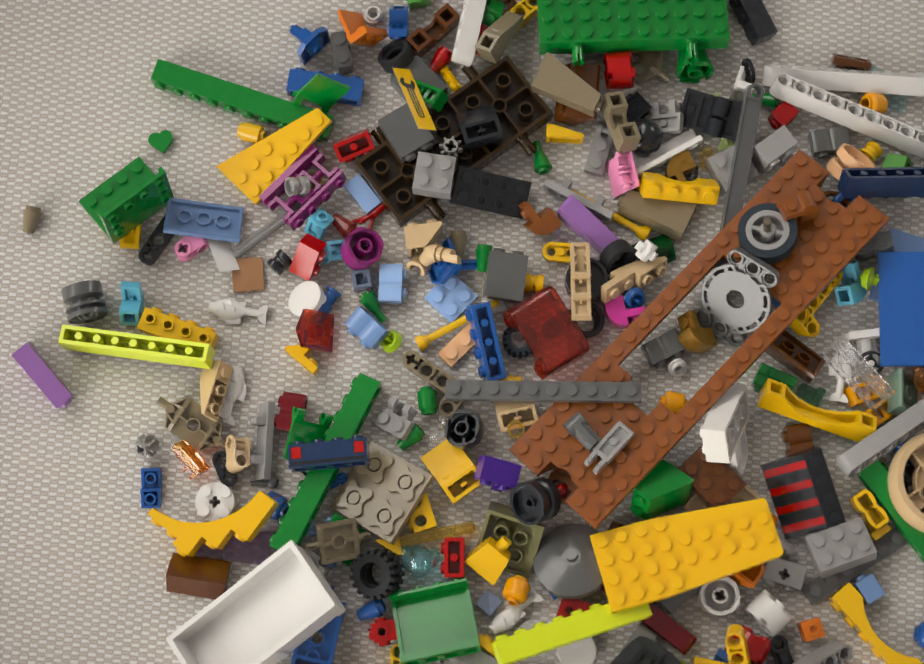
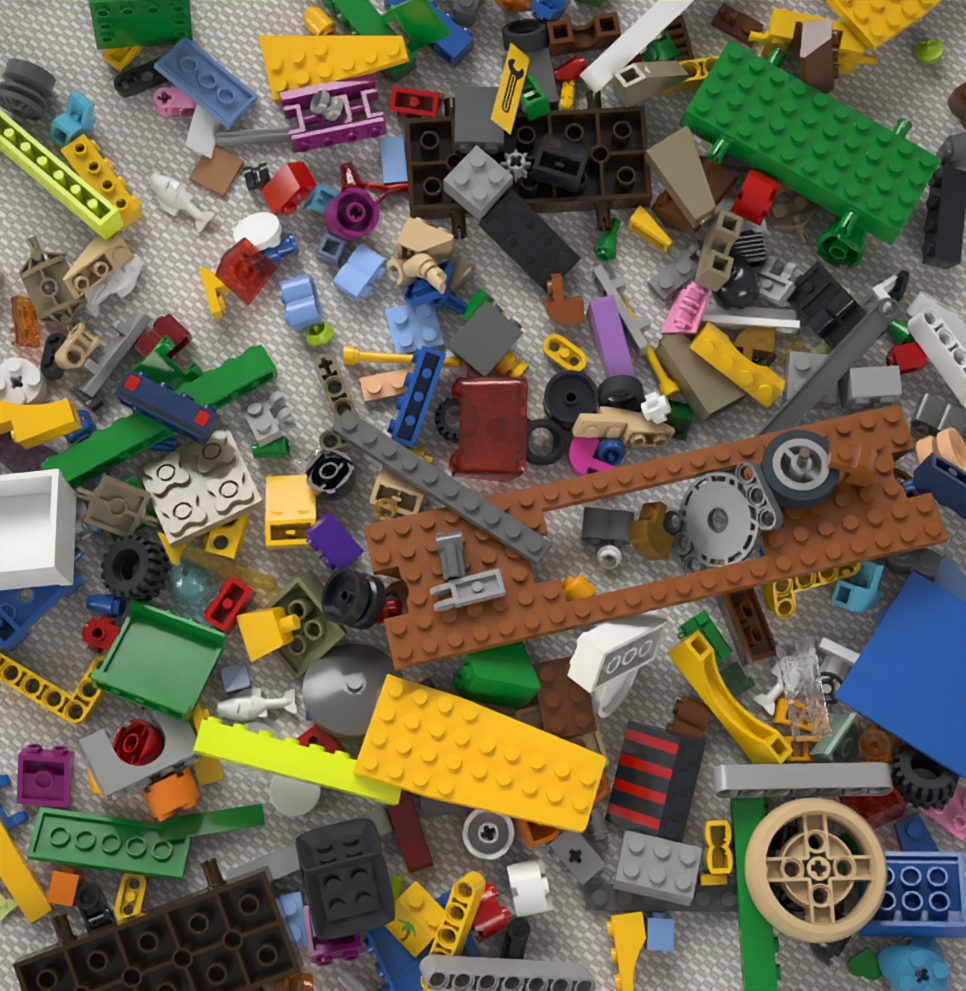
camera: 25 degrees right, 0 degrees up
(318, 223) = (323, 161): medium azure bracket -> none
(369, 301) = (324, 277): green cone -> none
(427, 400) = (314, 420): green brick -> none
(516, 590) = (273, 683): light orange head -> none
(580, 281) = (560, 394): tan slope -> none
(811, 629) = (565, 936): orange brick -> none
(868, 278) = (884, 592): lime hat -> none

